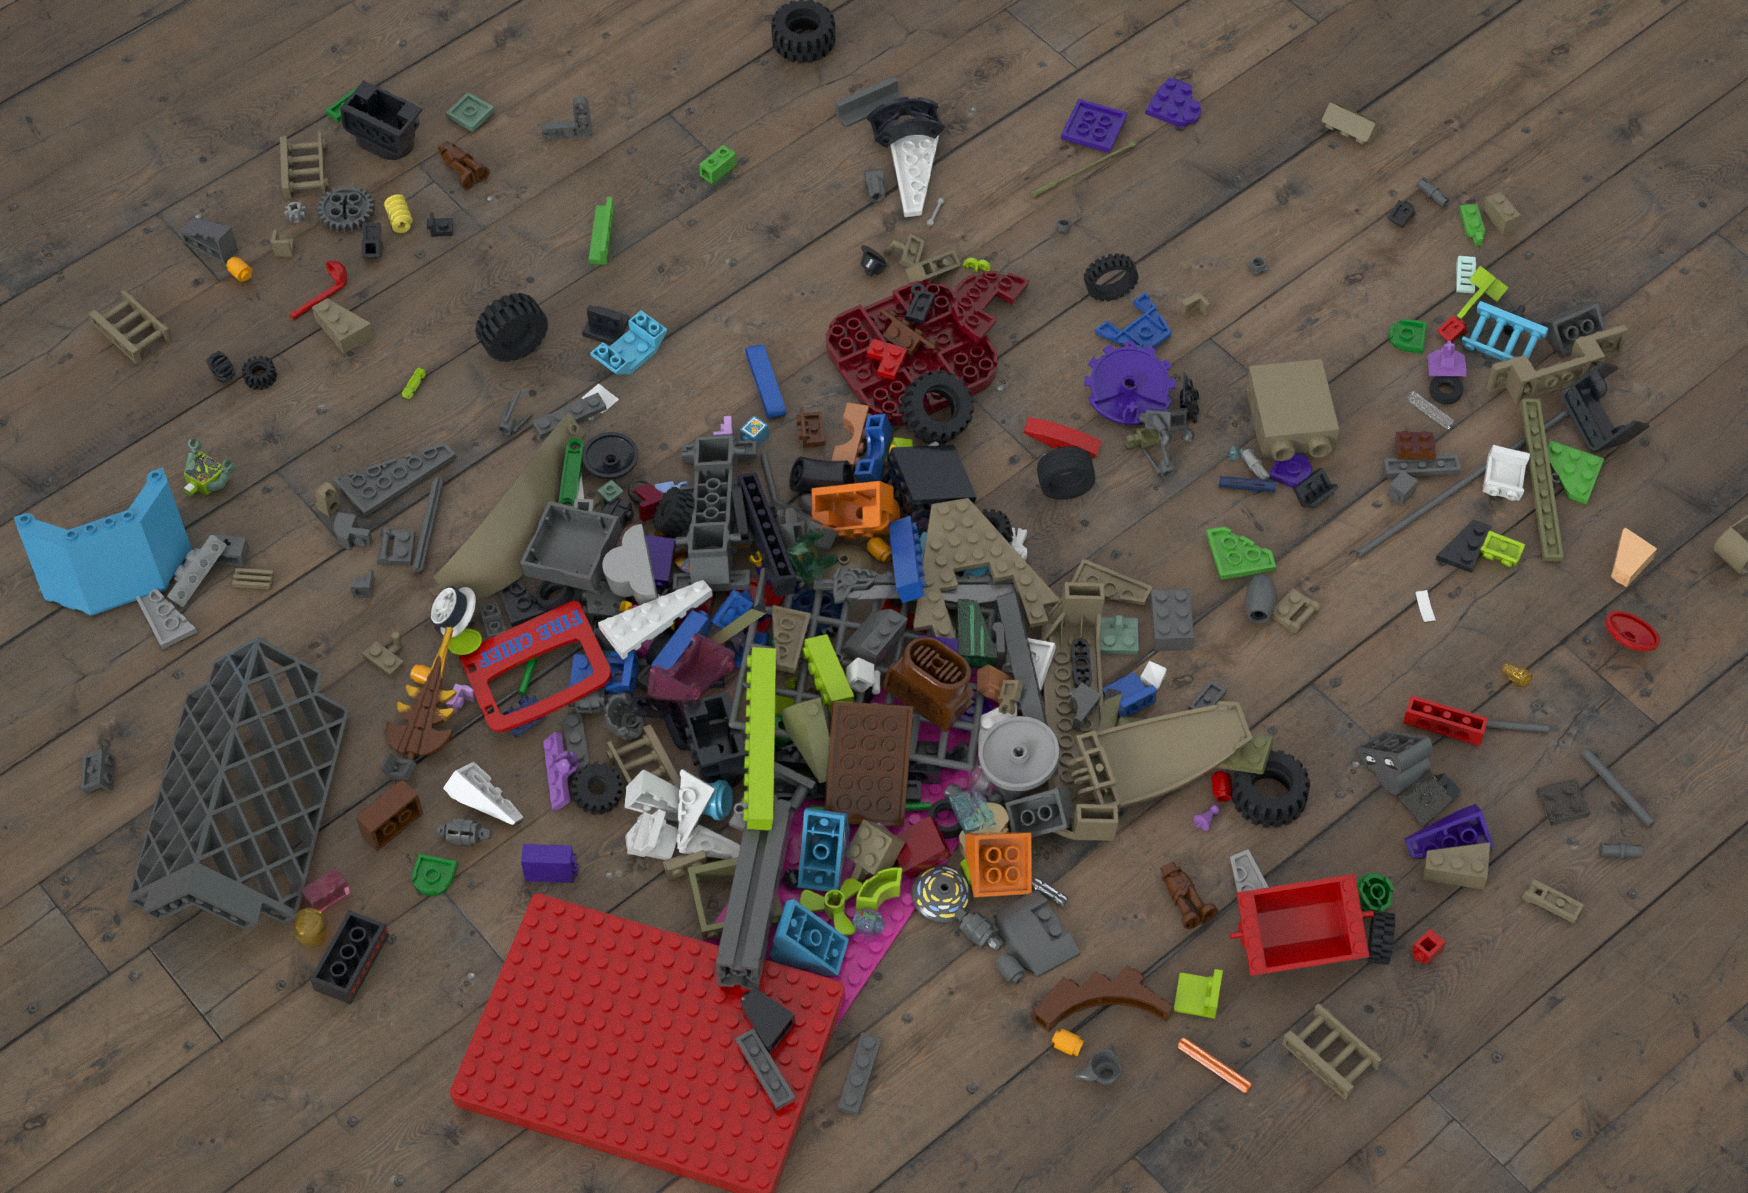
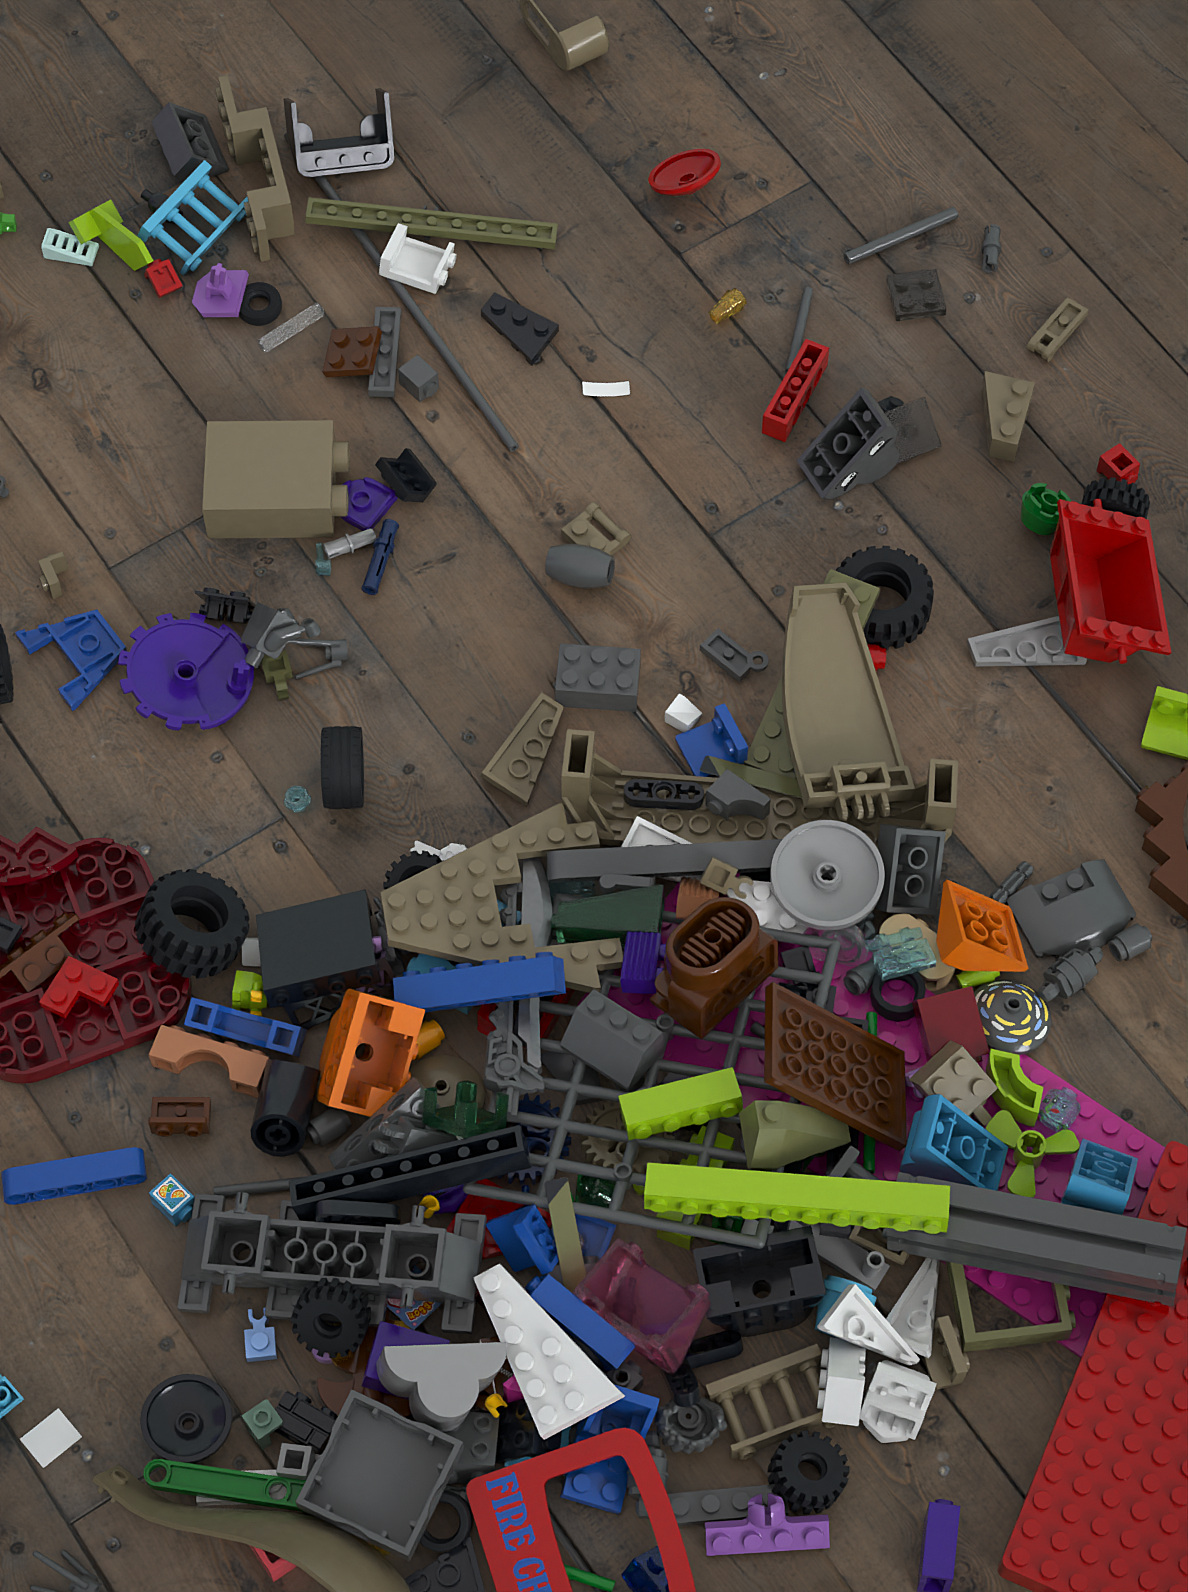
camera: 85 degrees left, 5 degrees up
(579, 411) = (79, 1488): dark grey plate -> none
(650, 496) = (274, 1362): dark red piece -> none
(726, 428) = (160, 1239): lavender bracket -> none
(788, 636) = (605, 1152): dark tan wing -> none
(861, 676) = (686, 1059): white brick -> none
(1060, 435) = (259, 774): red slope -> none
(1119, 635) = (616, 743): sand green hinge -> none
(1180, 887) = (1021, 724): reddish brown piece -> none
(1203, 820) = (913, 685): medium lavender piece -> none
(1237, 555) = (496, 586): bright green plate -> none
(1408, 335) = (157, 331): green tile -> none
(1455, 830) = (956, 403): dark purple wedge -> none
(1502, 548) = (535, 285): lime bracket -> none
(1575, 469) = (420, 184): bright green plate -> none
(1631, 557) = (567, 156): light nougat slope -> none

